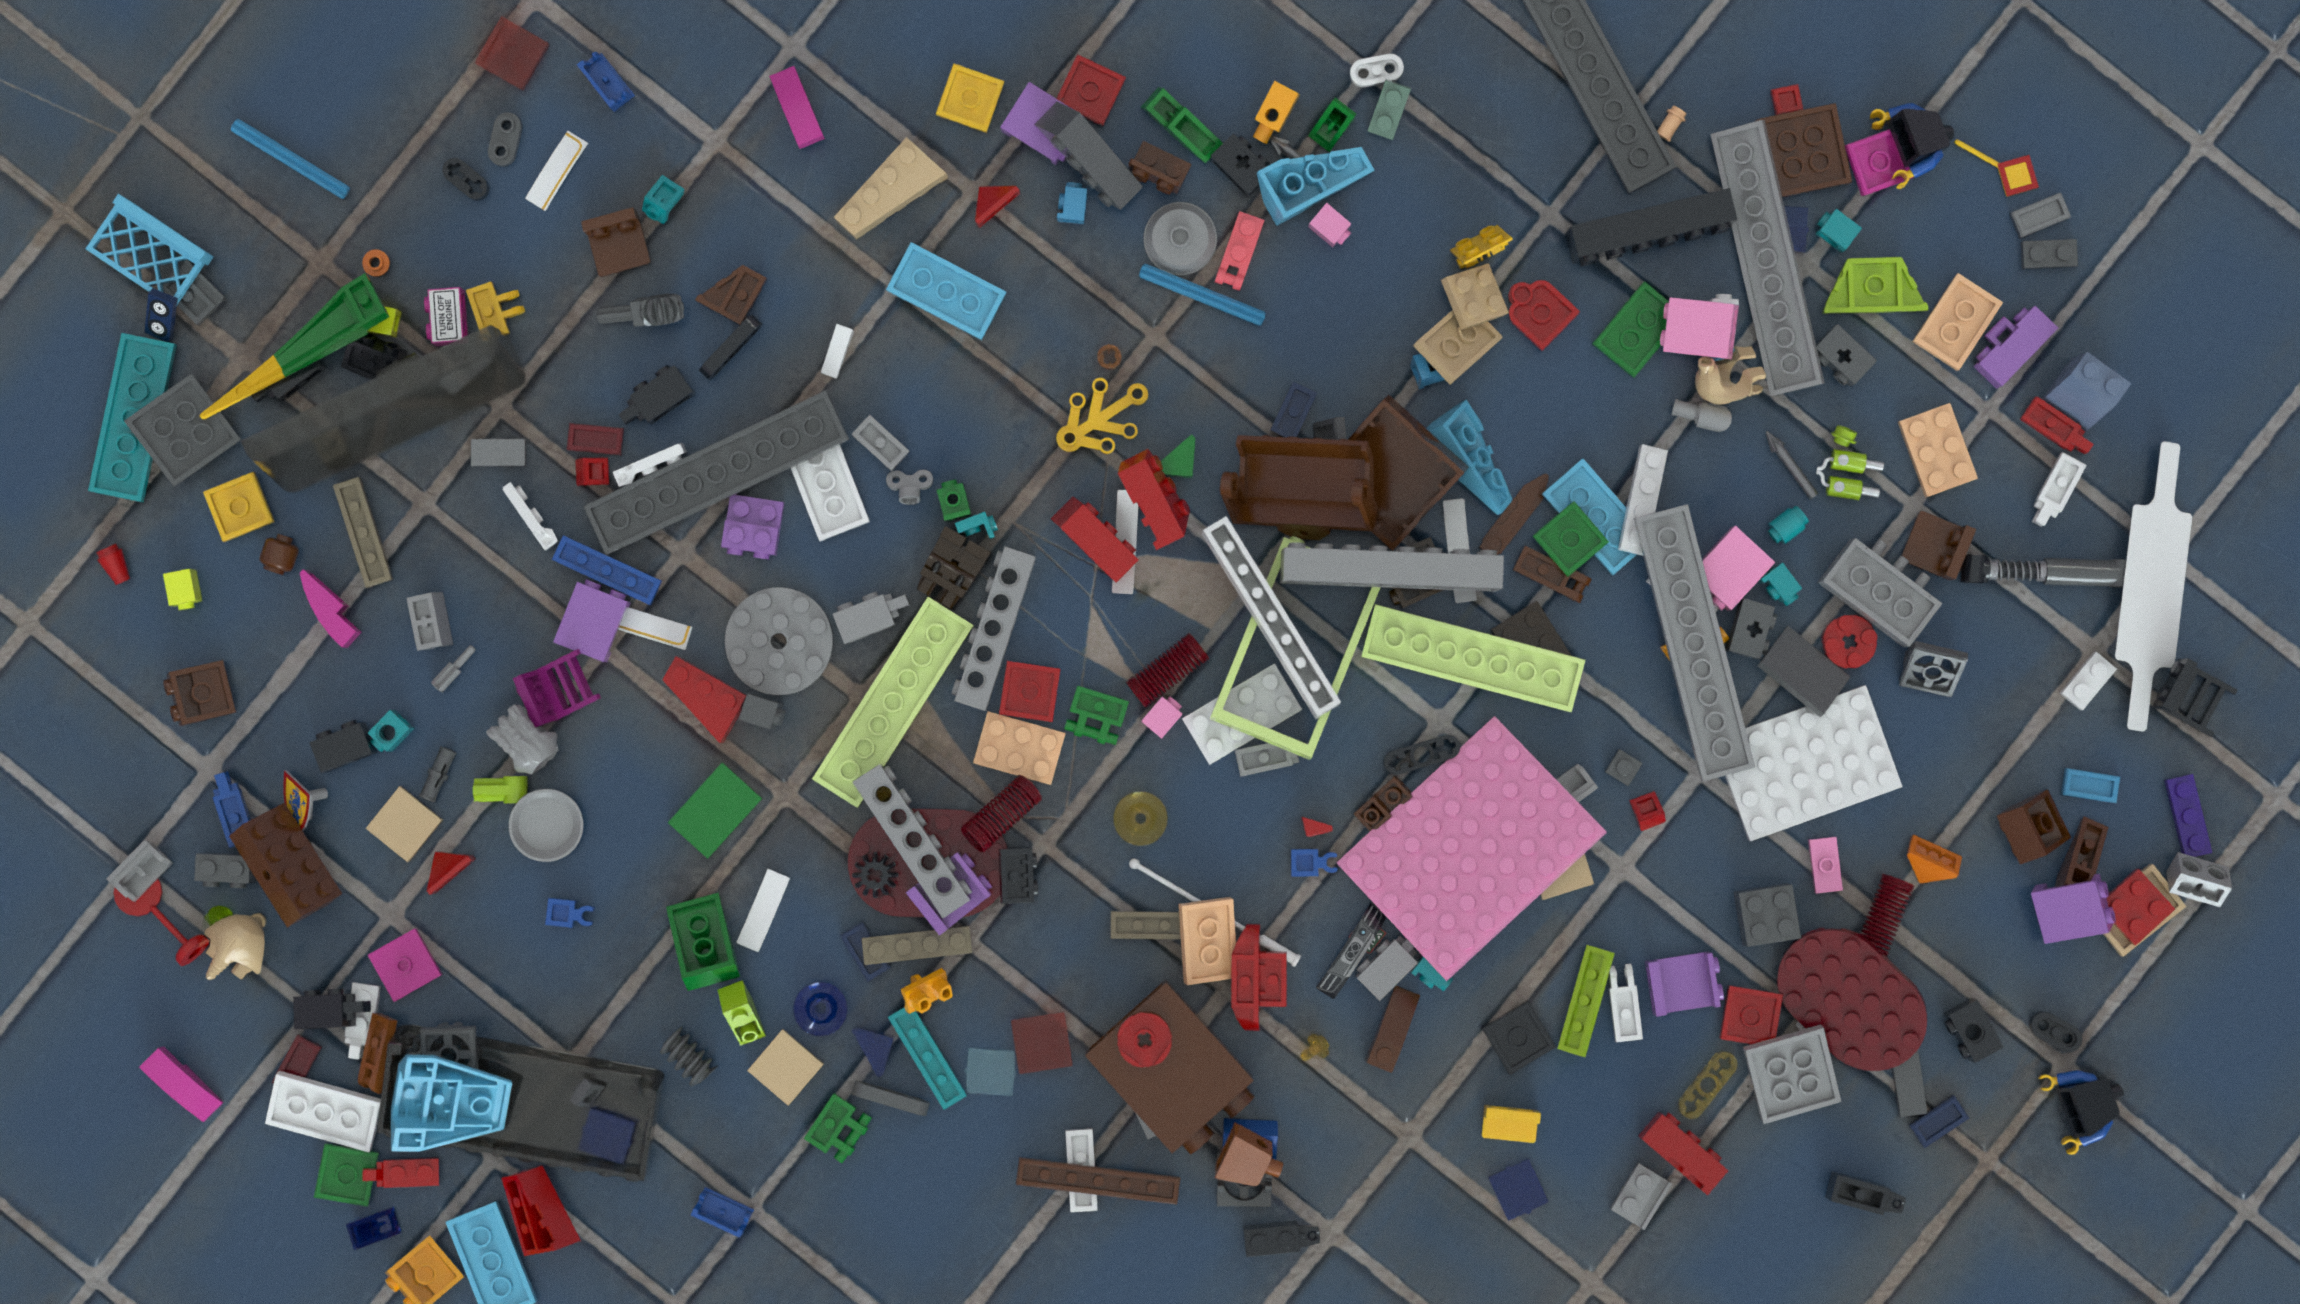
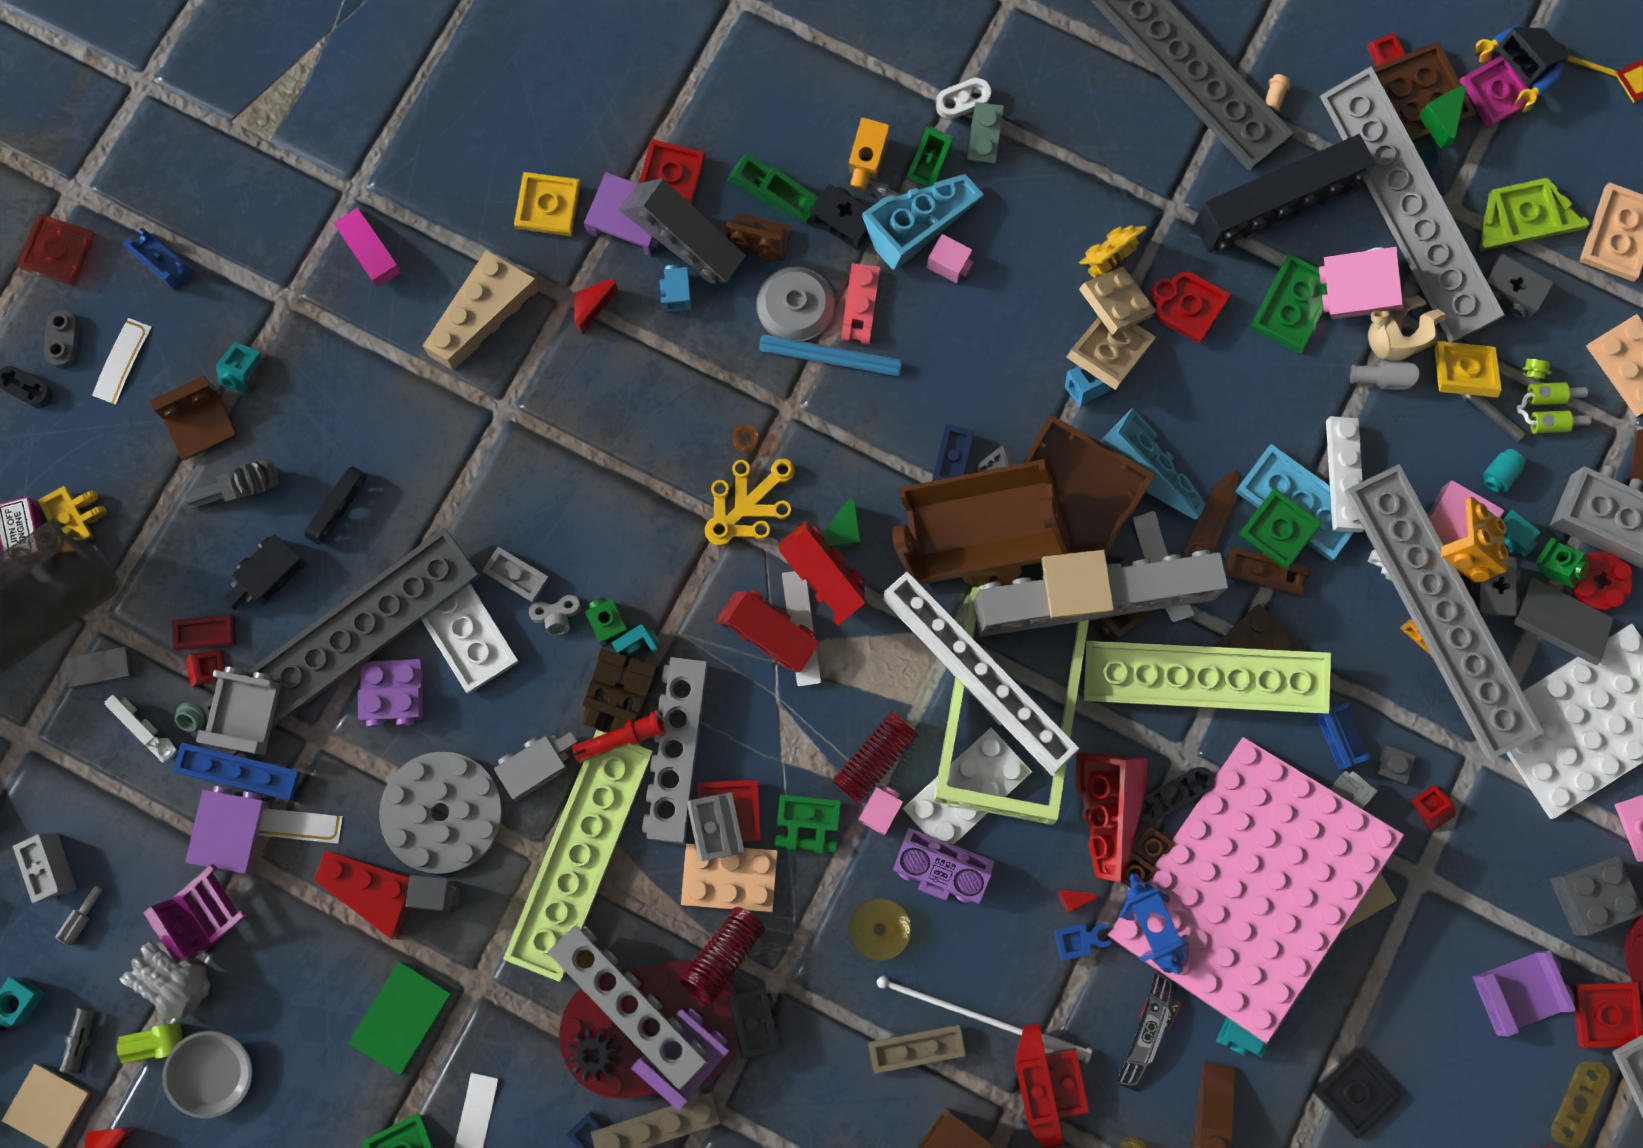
camera: 15 degrees left, 10 degrees down
(572, 514) = (189, 717): none -> sand green plate
(620, 520) = (241, 711): none -> light grey panel
(648, 465) = (266, 644): white hinge -> none
(734, 294) = (331, 450): reddish brown wing -> none
(837, 350) = (452, 487): white piece -> none
(946, 291) = (558, 403): medium azure plate -> none
(959, 607) = (633, 733): none -> red pin
(1015, 703) = (715, 827): none -> light grey plate
(1205, 777) = (943, 867): none -> medium lavender piece
(1207, 939) = (984, 1053): light nougat plate -> none
(1263, 758) = (1002, 834): light grey hinge -> none
(1367, 747) = (1112, 801): none -> red wedge
(1370, 560) = (1077, 584): none -> tan tile
(1380, 883) = (1167, 947): none -> blue piece
(1387, 967) = (1192, 1042): light grey hinge -> none
(1584, 733) = (1343, 736): none -> blue hinge
(1586, 1000) = (1422, 1035): lime plate -> none
(1624, 1007) = (1465, 1032): white hinge -> none
(1744, 591) = (1484, 550): none -> light orange bracket
(1778, 425) = (1467, 369): none -> yellow plate
(1816, 620) = (1562, 563): none -> green brick
(1817, 180) = (1443, 116): none -> green slope
(1837, 230) = (1474, 164): teal brick -> none

